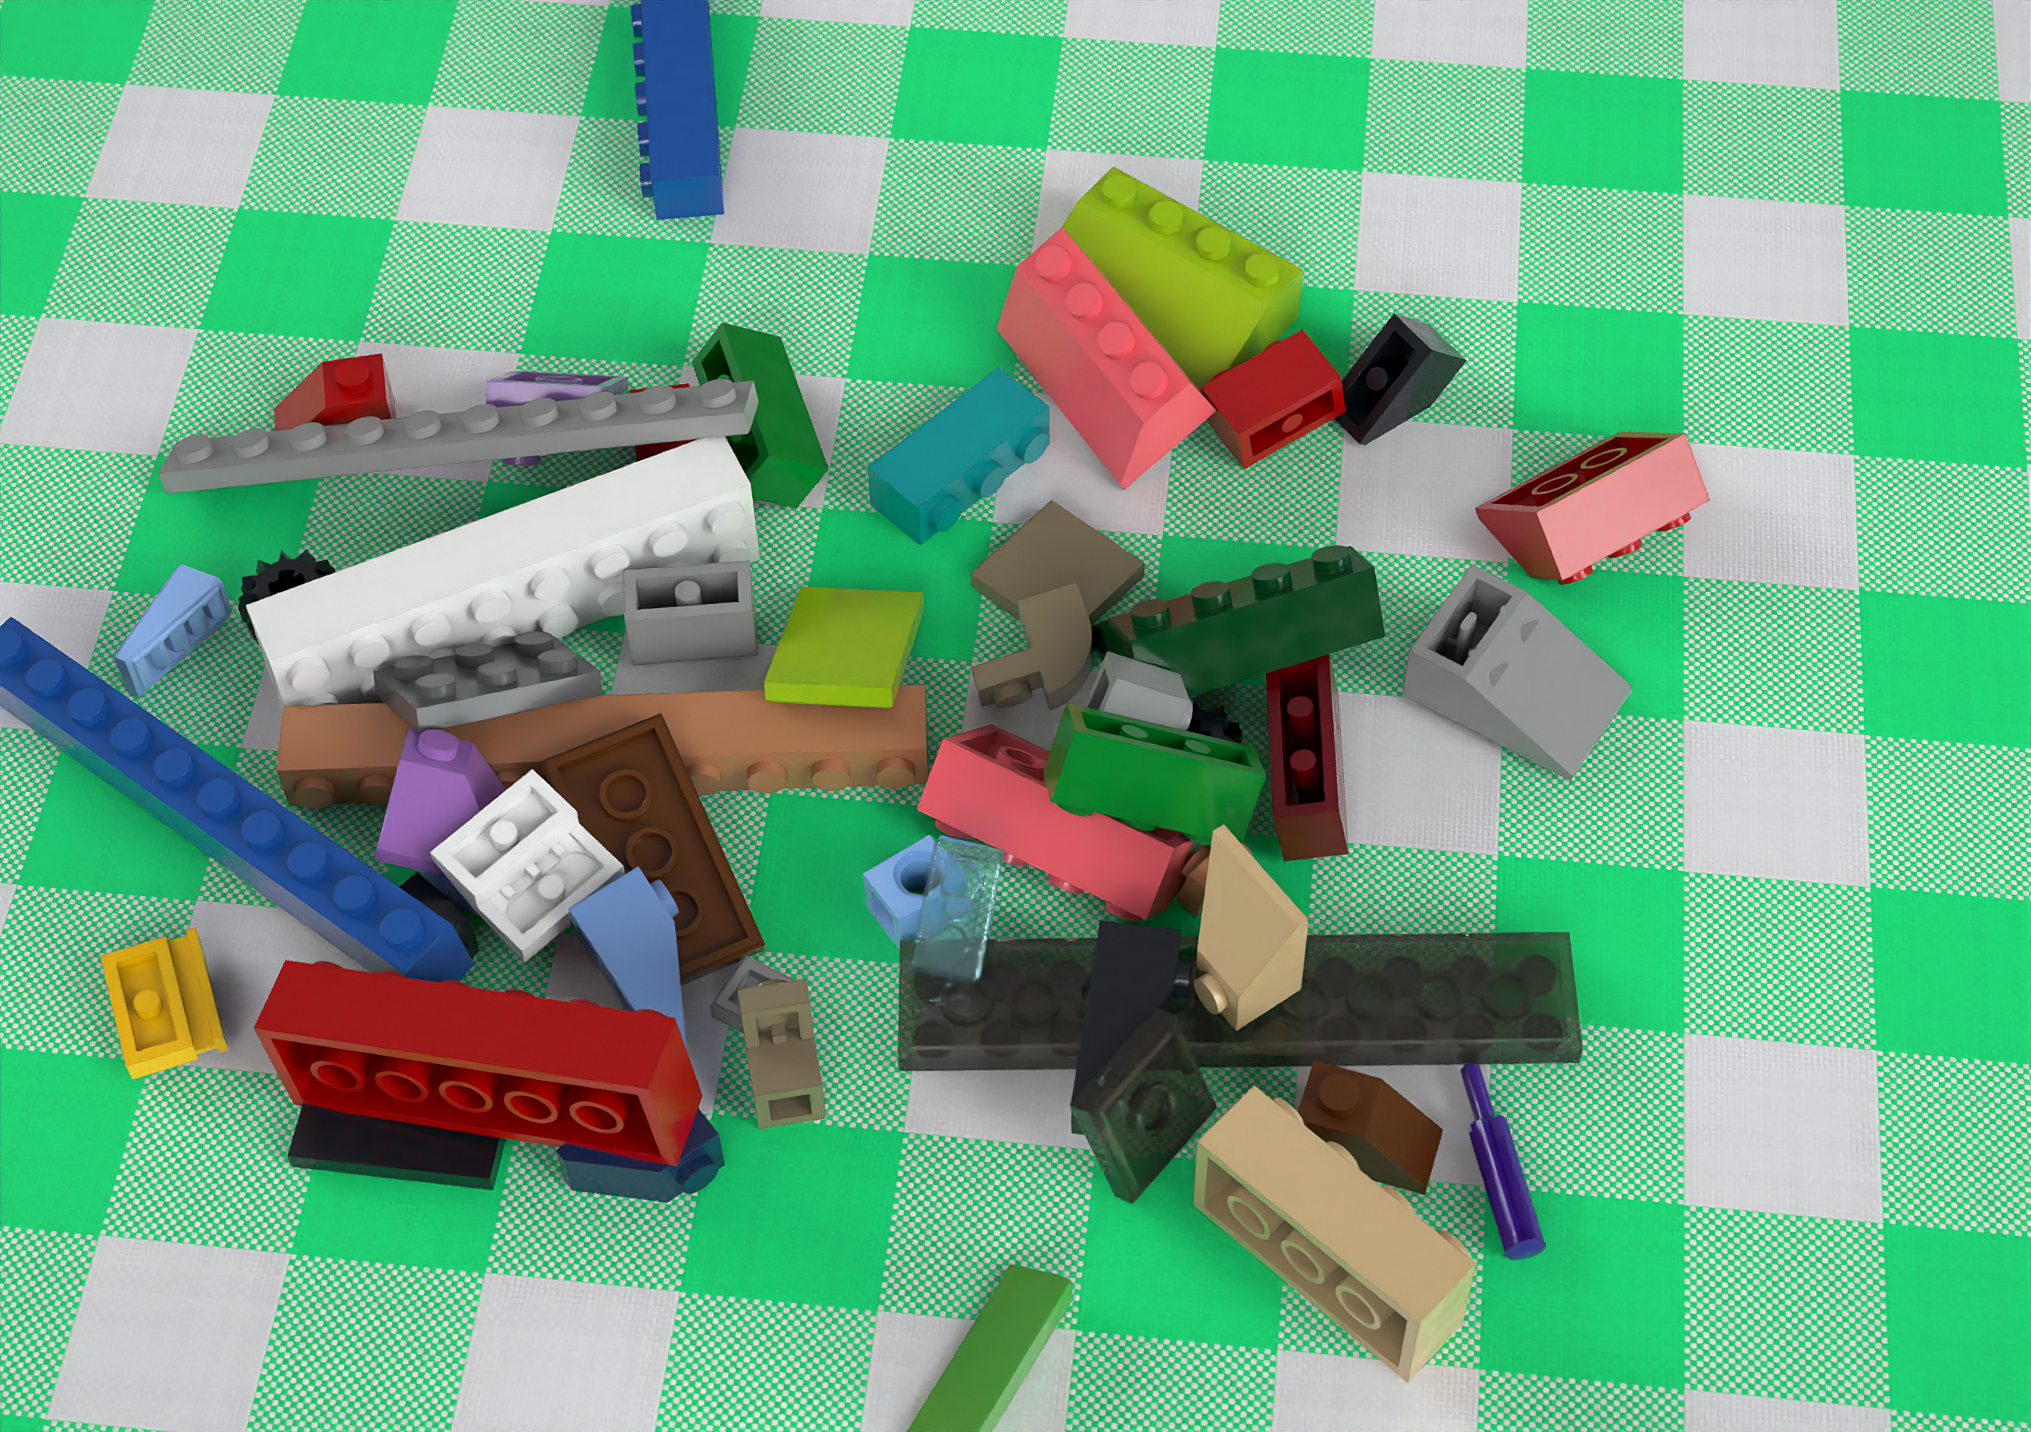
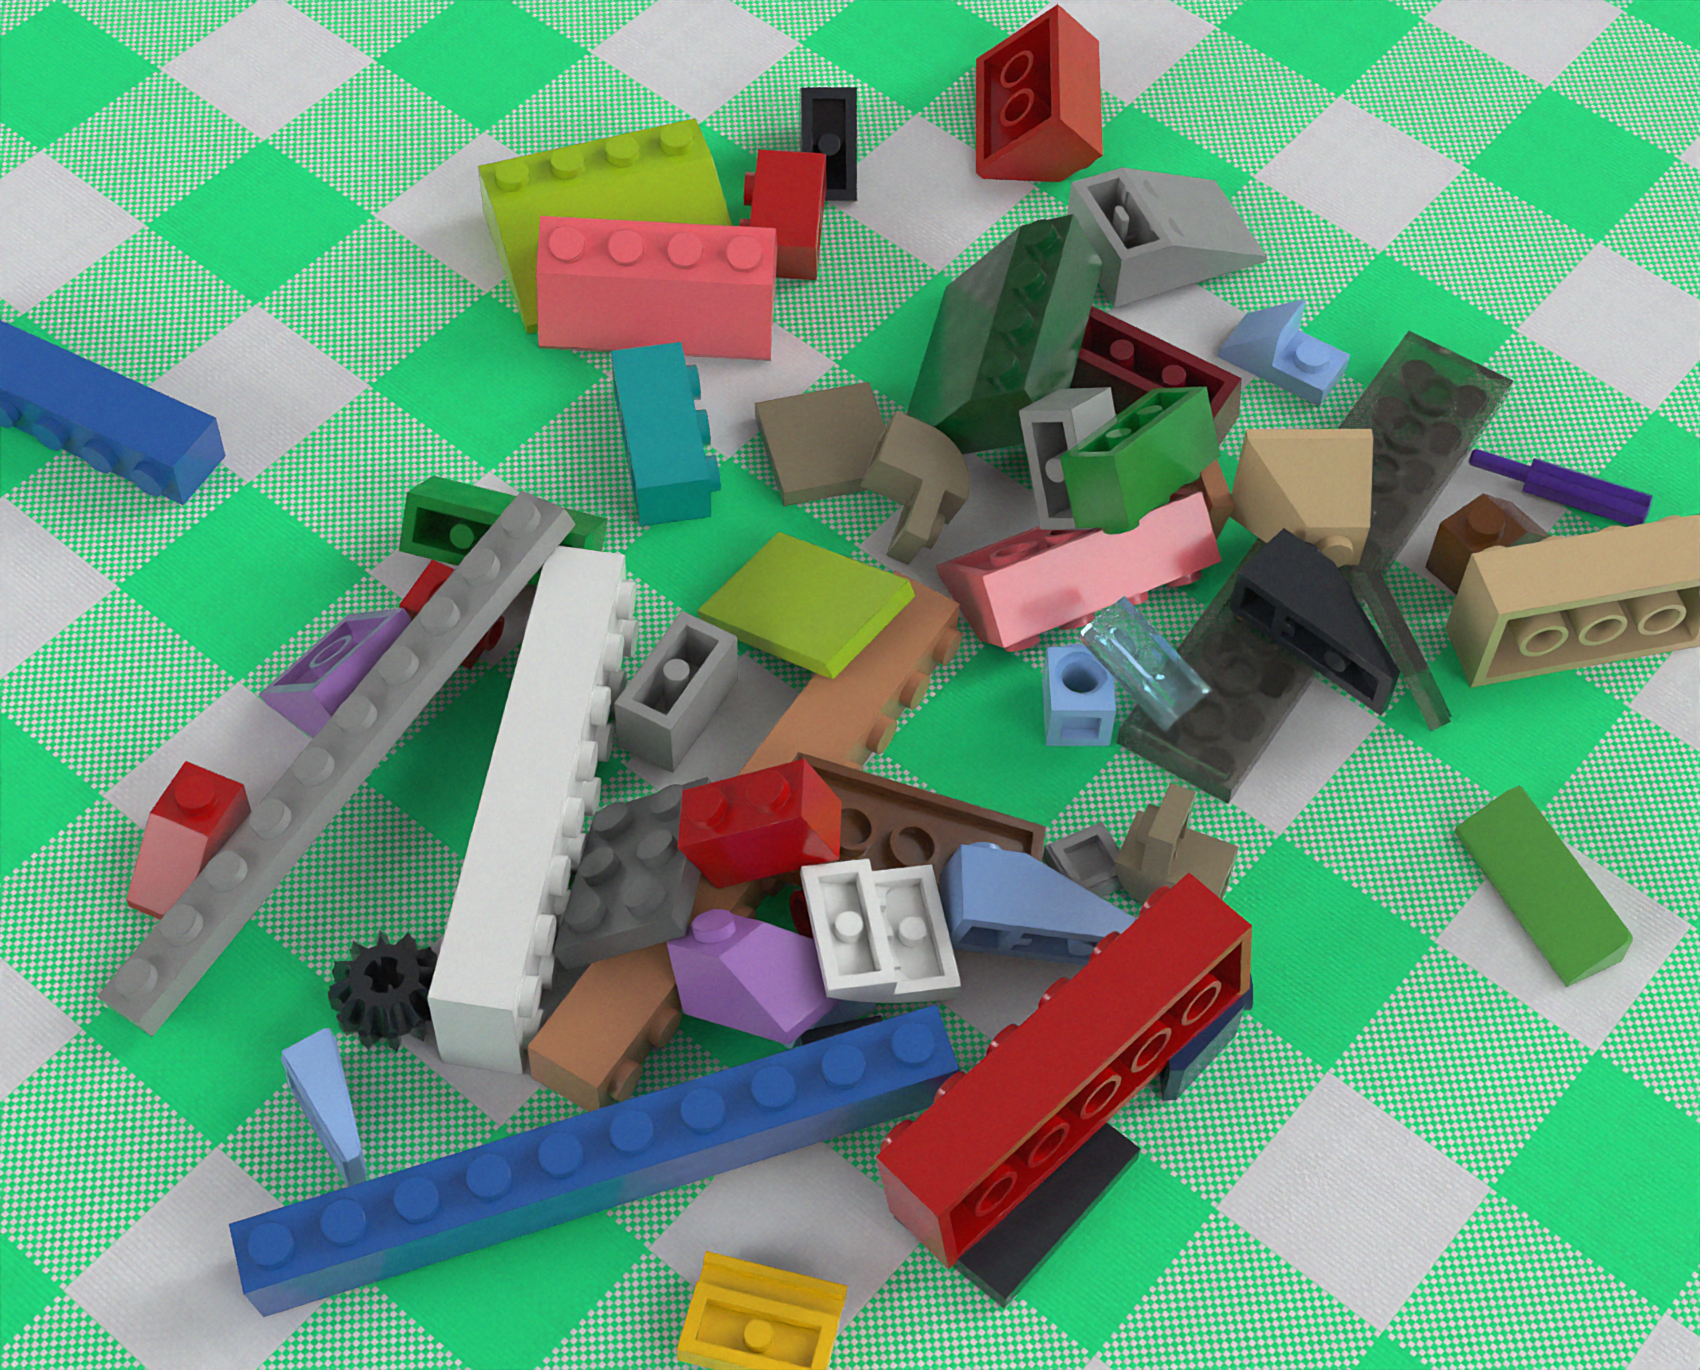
camera: 60 degrees left, 0 degrees up
(549, 718) = (760, 824): none -> red brick
(1465, 857) = (1280, 353): none -> light blue slope

